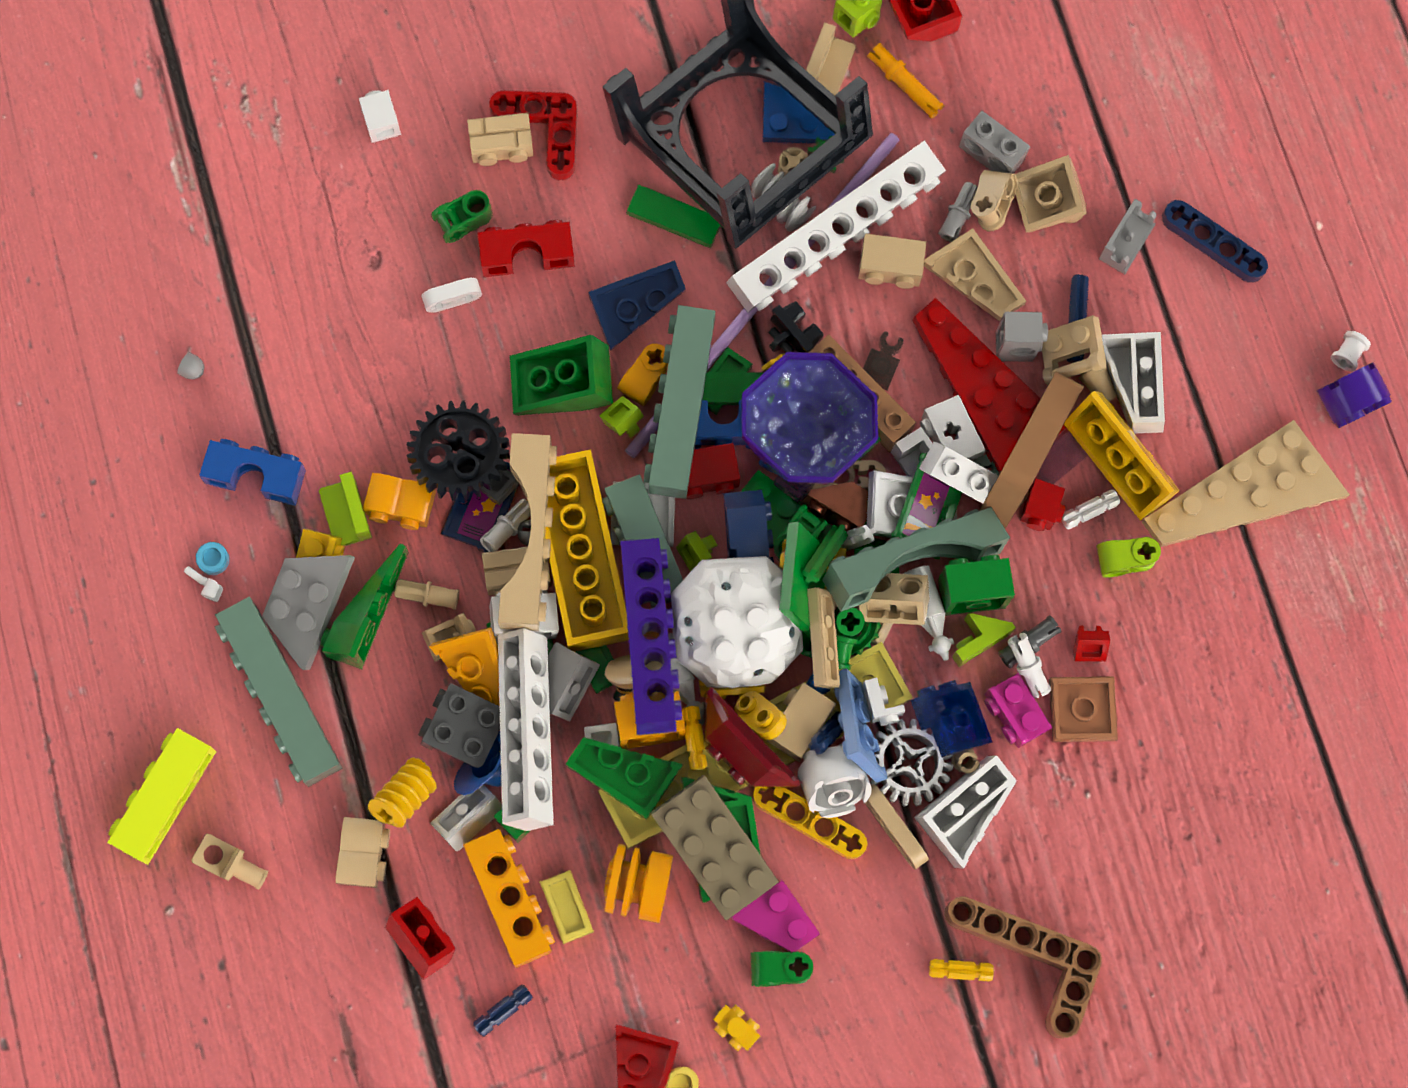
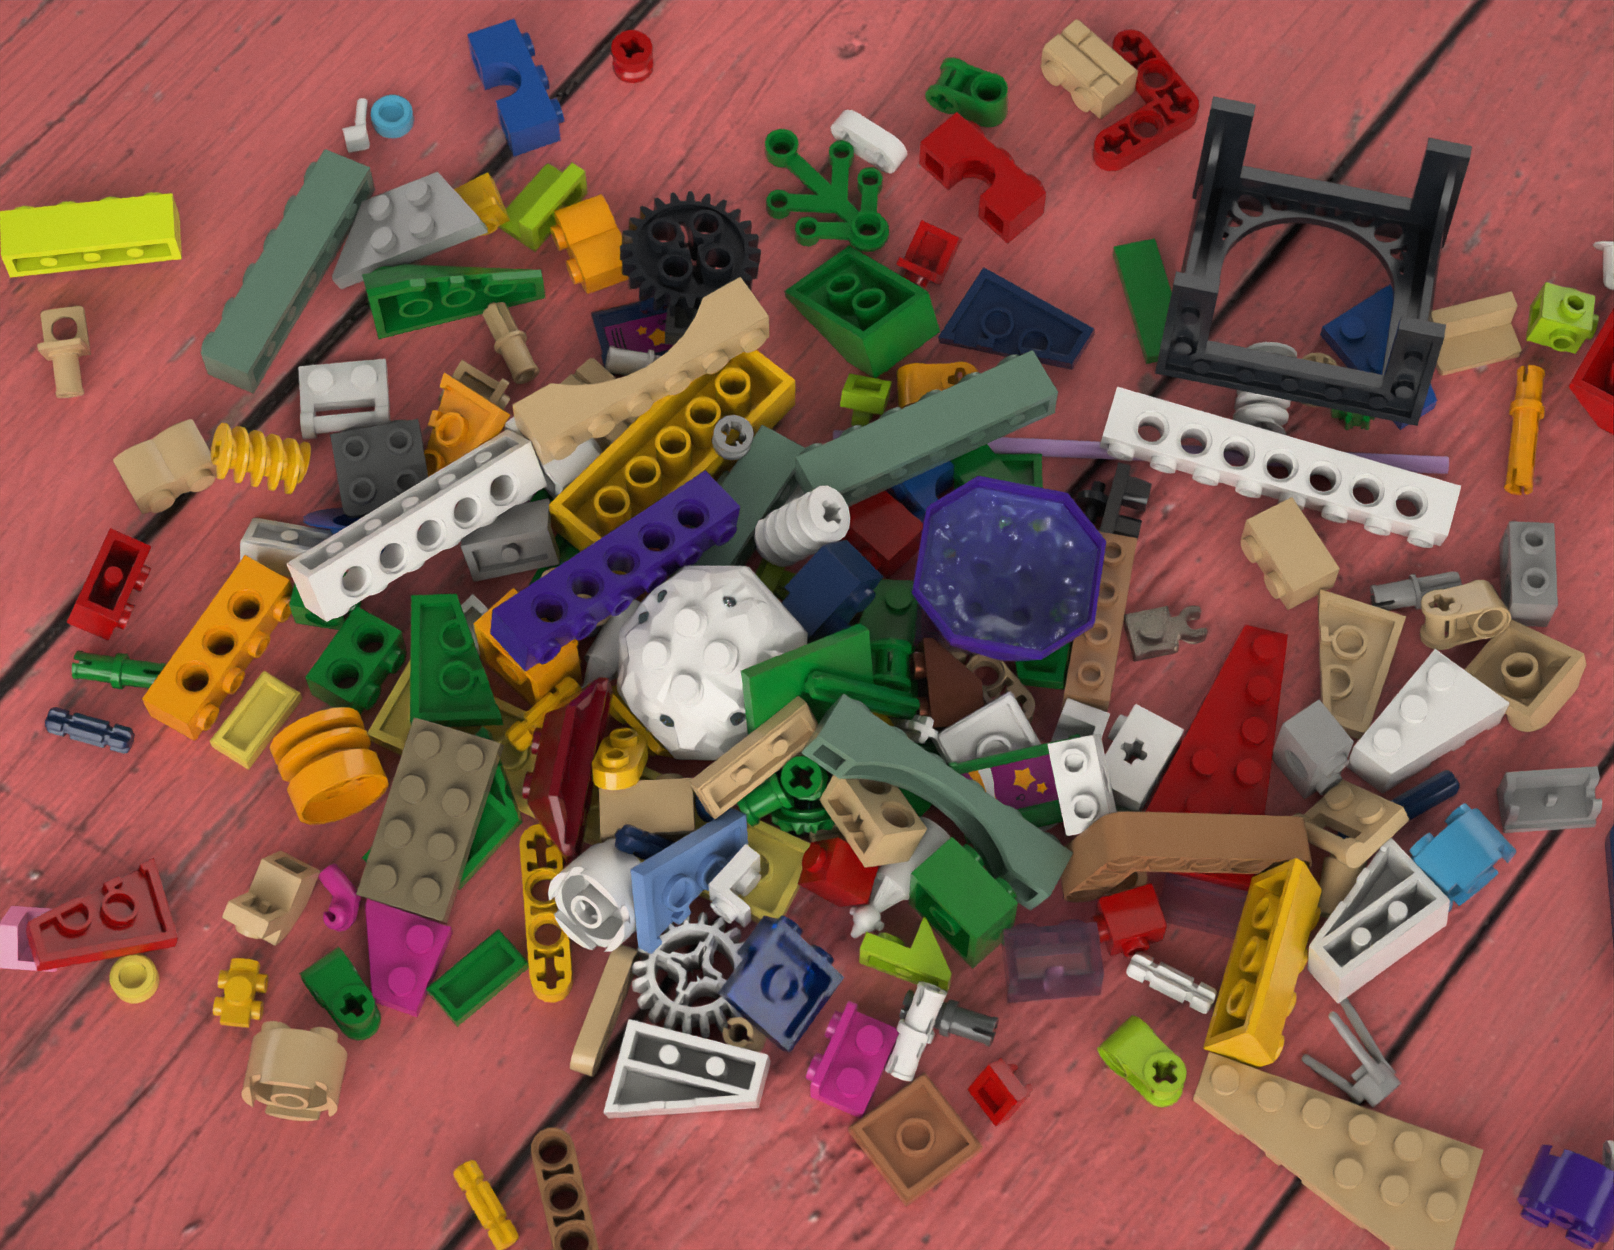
camera: 60 degrees right, 10 degrees down
(288, 395) = (640, 64): none -> red wheel
(381, 712) = (343, 387): none -> white plate
(469, 342) = (827, 197): none -> green plant
(476, 967) = (117, 670): none -> green pin
(554, 316) = (929, 255): none -> red bracket
(570, 827) = (345, 659): none -> green brick
(606, 501) = (746, 436): none -> light grey bush
(694, 512) = (802, 526): none -> white piece
(695, 970) = (274, 898): none -> tan brick
(721, 930) = (344, 901): none -> dark pink arm
(815, 1026) = (295, 1071): none -> tan brick
(821, 884) = (477, 977): none -> green tile
(906, 642) = (836, 873): none -> red brick
(1037, 561) = (1052, 961): none -> clear purple window
(1039, 264) = (1425, 720): none -> white wedge
(1134, 305) = (1462, 854): none -> dark azure brick
(1215, 445) = (1374, 1078): none -> light grey plant

